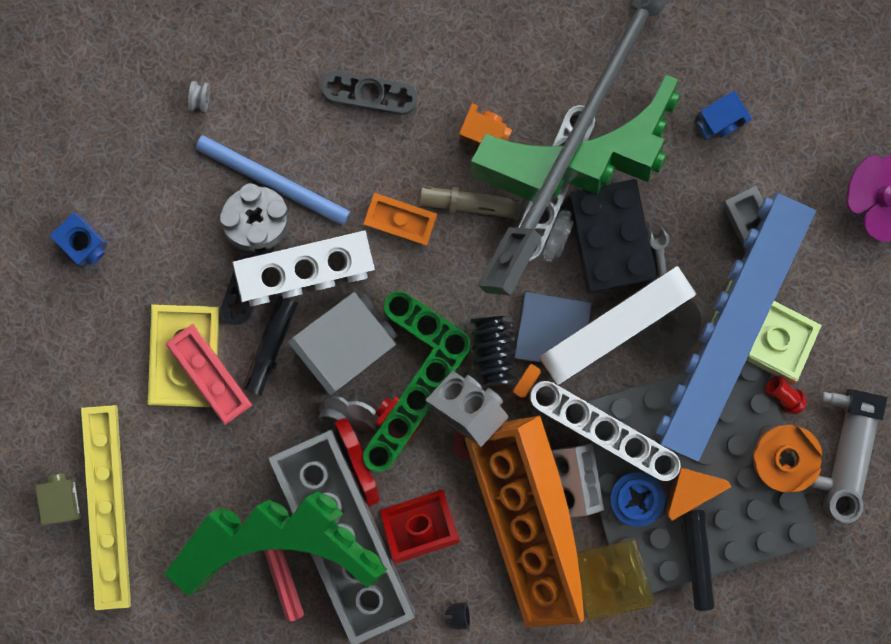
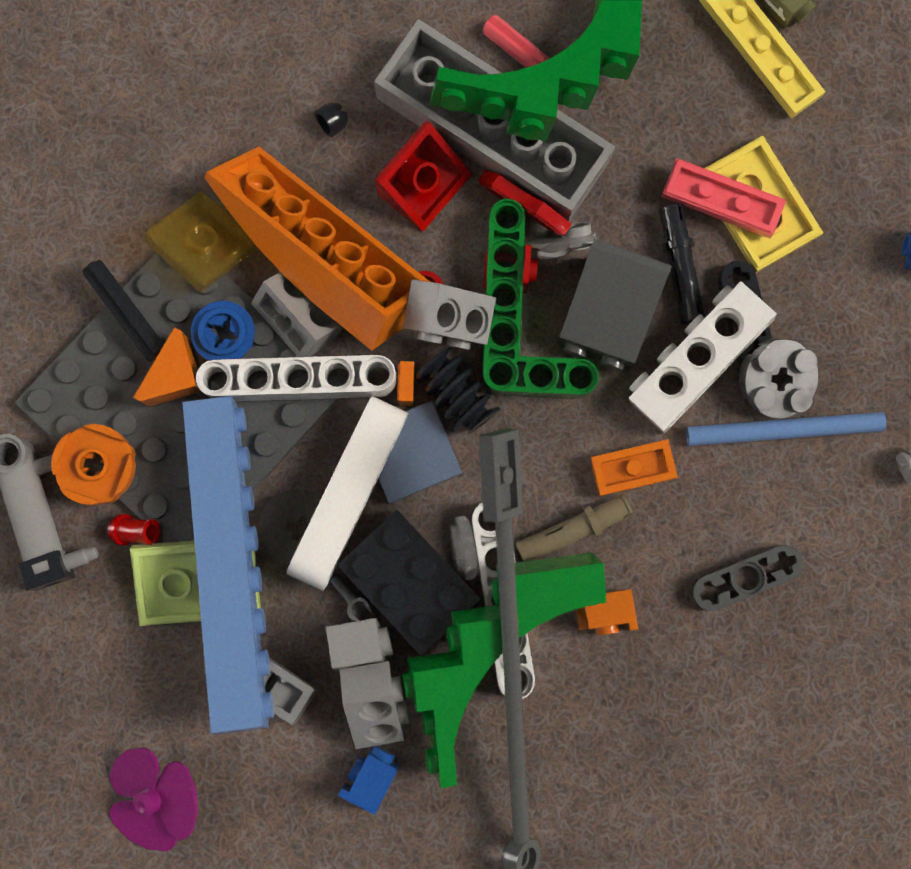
camera: 145 degrees right, 5 degrees down
(675, 212) = (358, 644): none -> light grey brick
(690, 165) = (373, 704): none -> light grey brick

